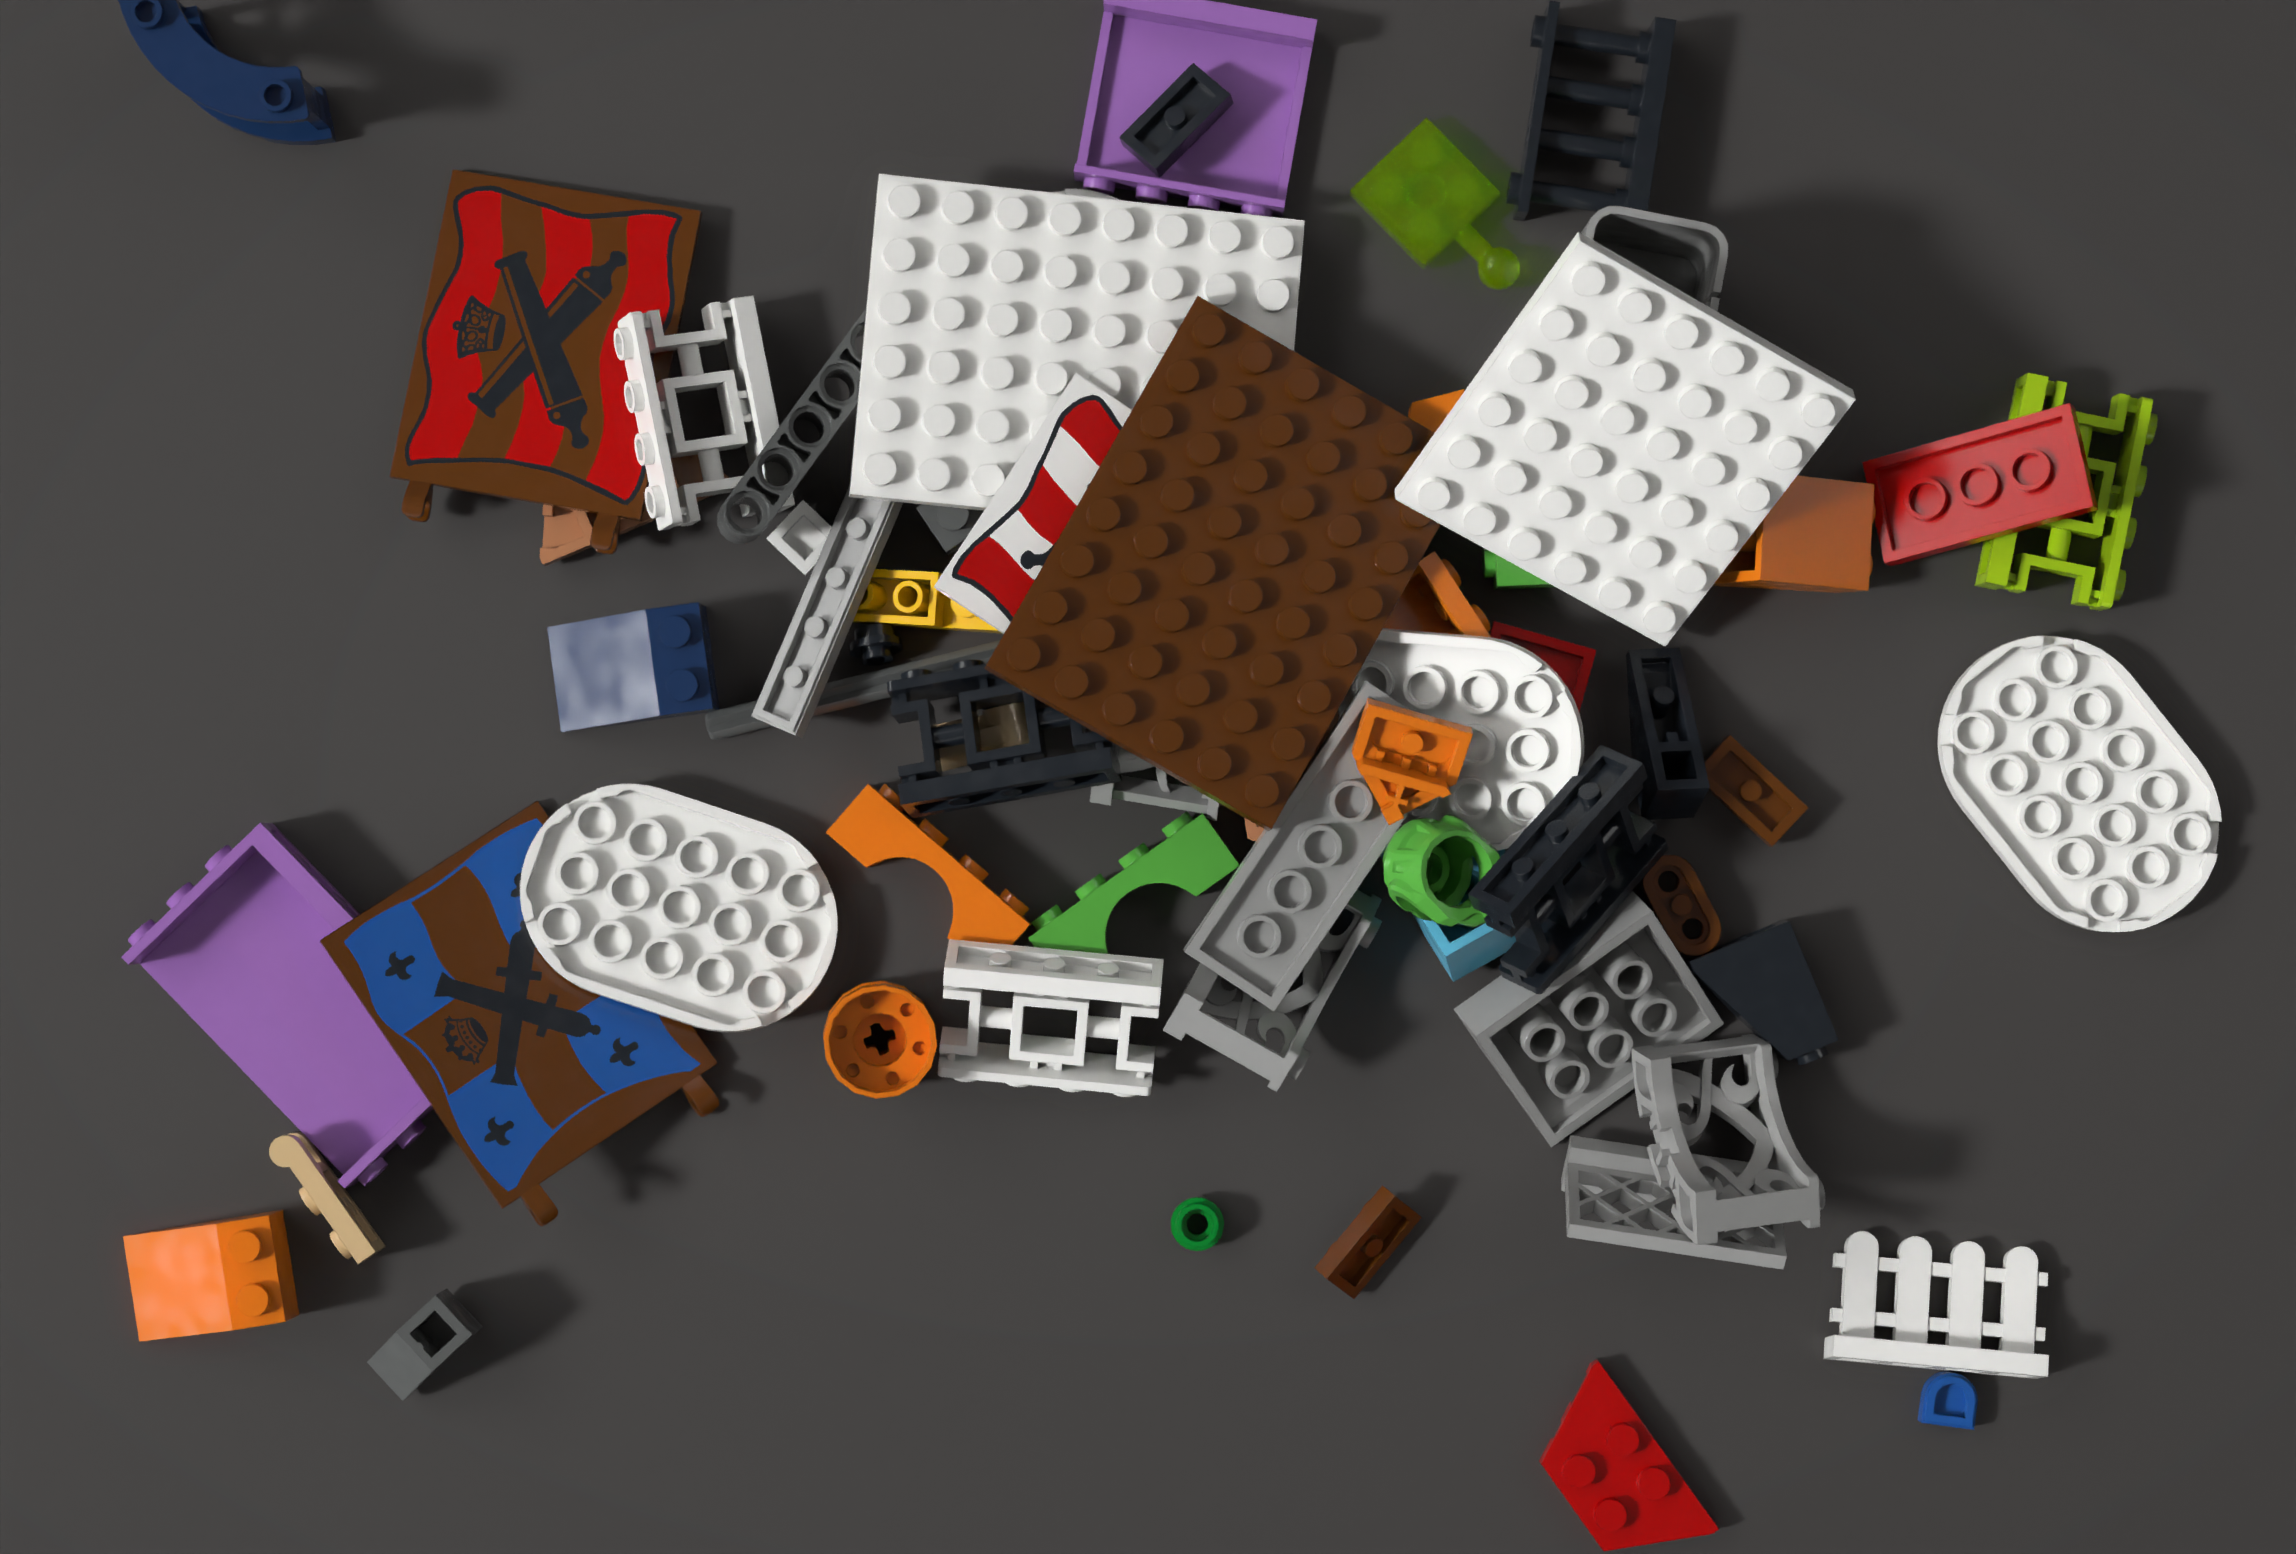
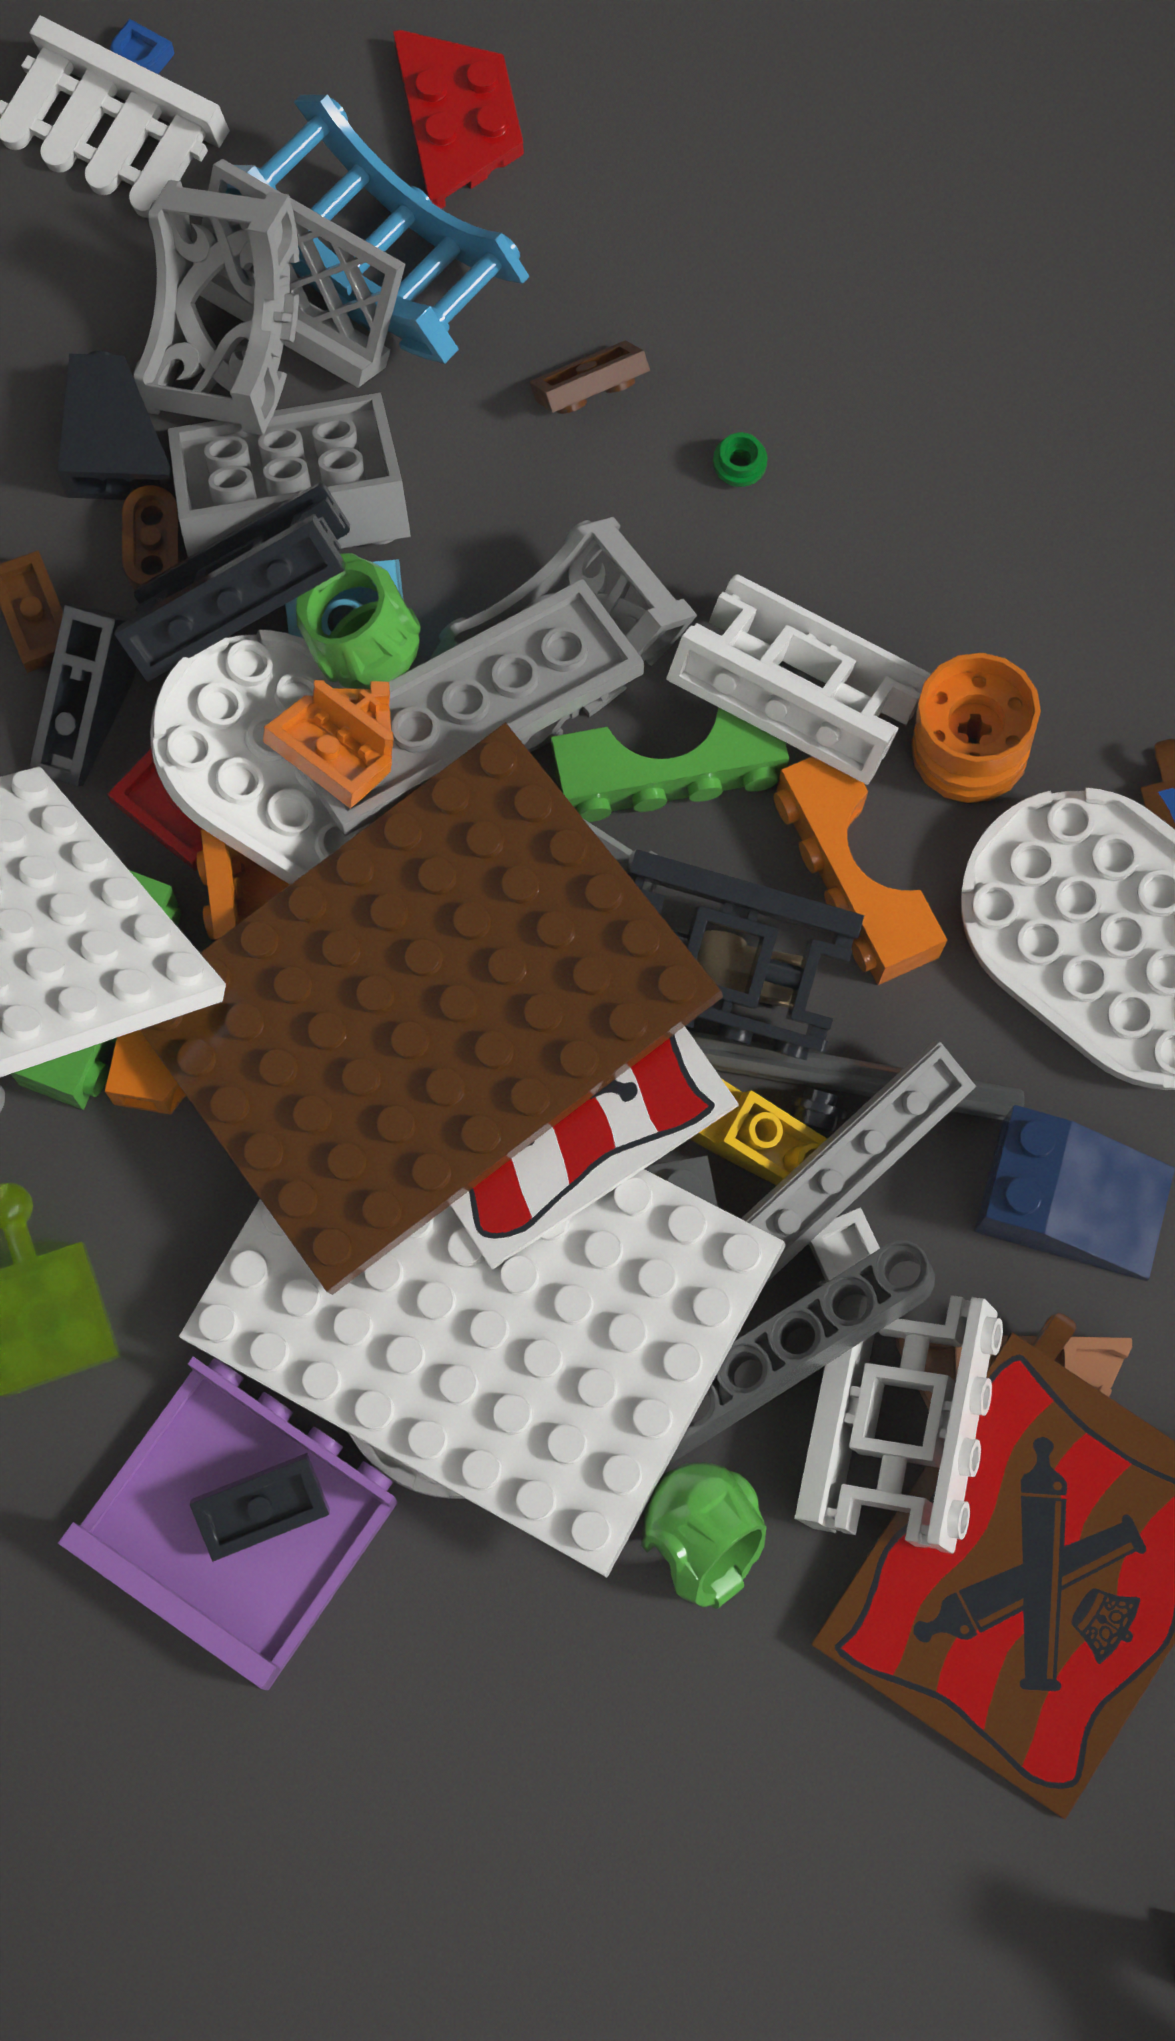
camera: 160 degrees left, 15 degrees down
(820, 253) = (706, 1530): none -> bright green helmet
(1531, 1212) = (487, 252): none -> dark azure fence

